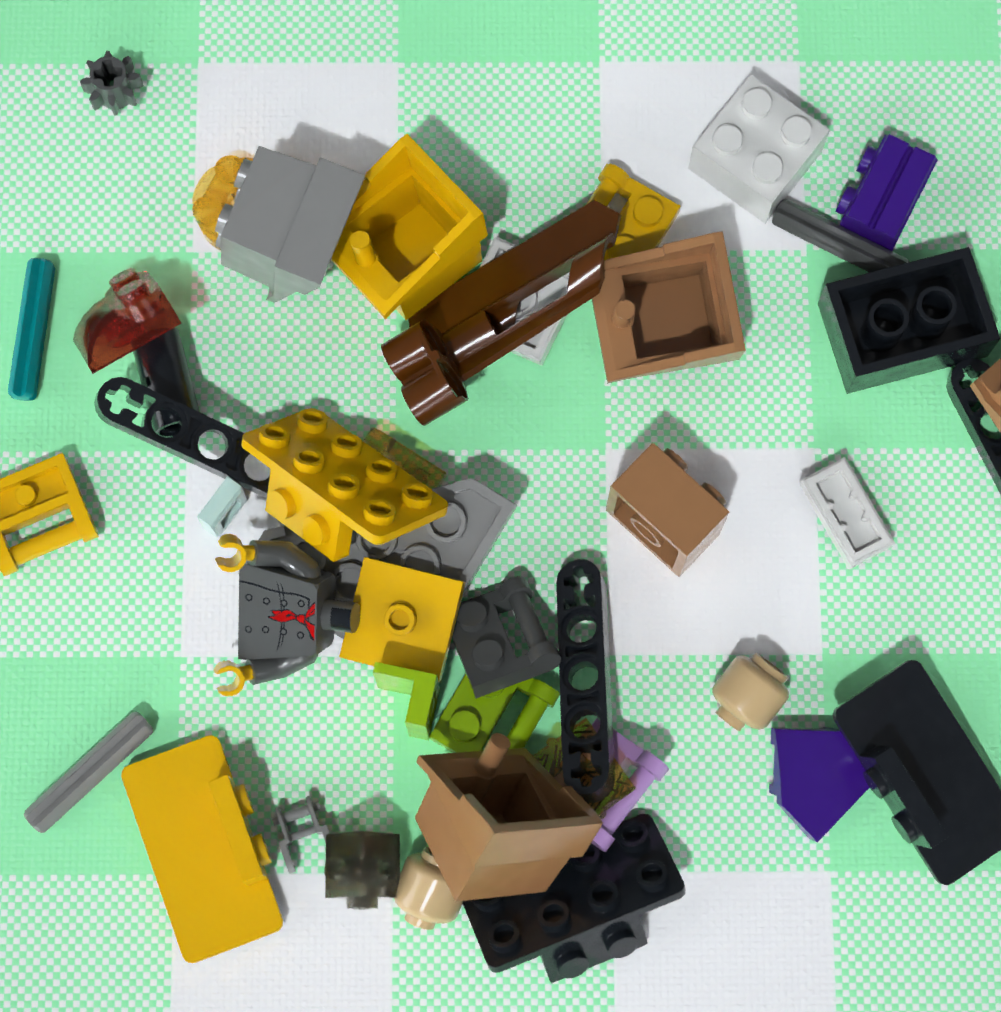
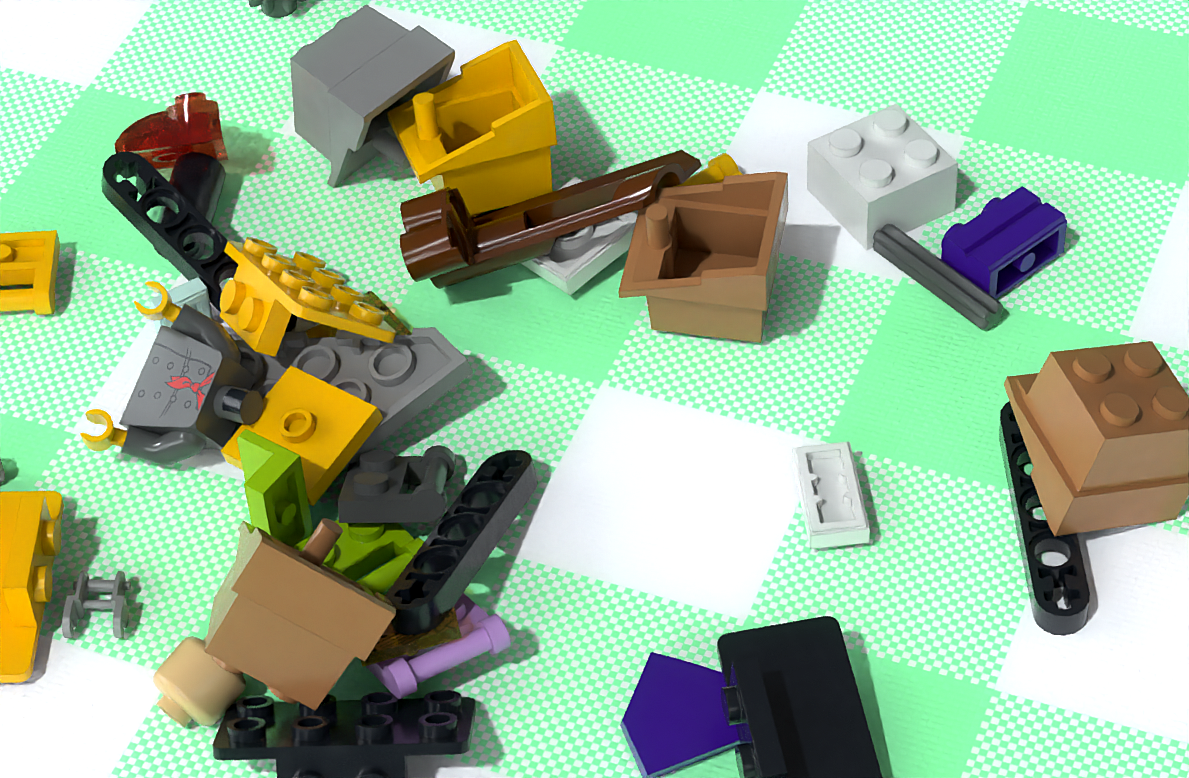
camera: 25 degrees right, 30 degrees down
(31, 329) = (89, 144): teal axle -> none
(362, 868) = (136, 634): clear smoke brick -> none
(667, 508) = (628, 419): medium nougat brick -> none
(750, 692) = (641, 612): tan head -> none
(907, 320) = (964, 335): black brick -> none

